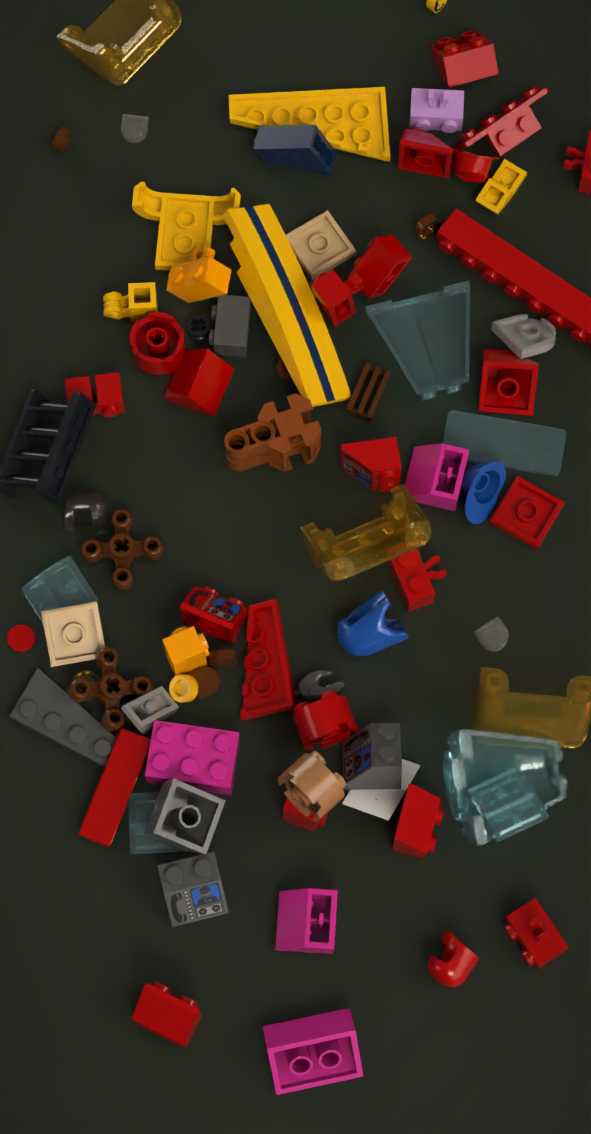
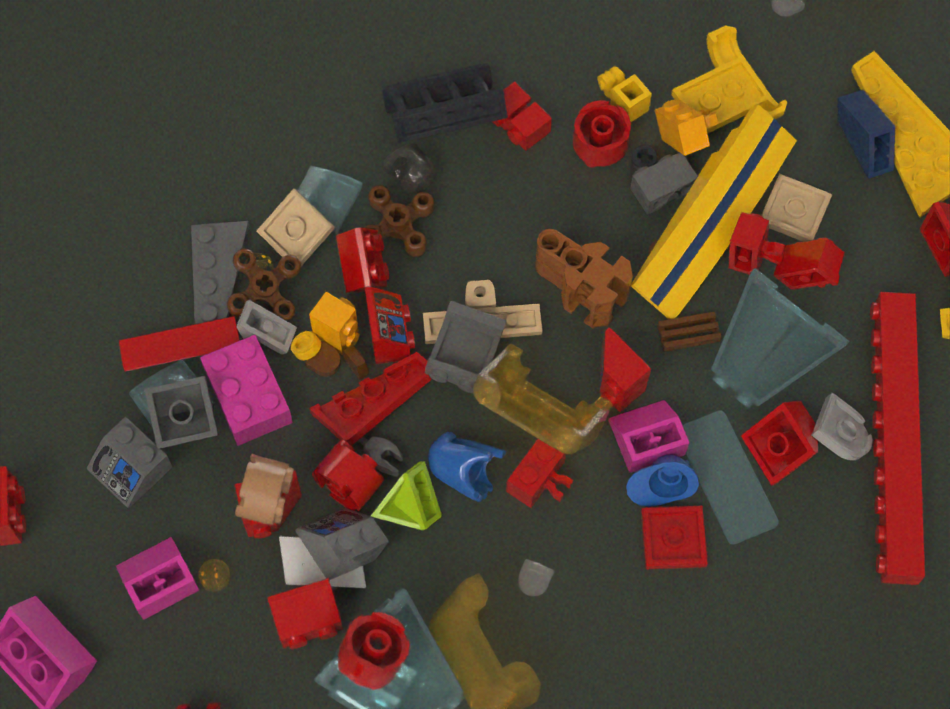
camera: 55 degrees right, 5 degrees down
(21, 638) = (268, 194): red piece -> none
(142, 597) = (362, 259): none -> red slope
(200, 381) = (595, 191): red slope -> none
(253, 538) = (521, 319): none -> tan plate
(275, 565) = (464, 346): none -> dark grey panel
(332, 876) = (214, 575): none -> clear yellow tile
(375, 686) = (411, 500): none -> lime slope
(427, 226) = (881, 282): reddish brown tile -> none
(489, 784) = (373, 650): none -> red brick

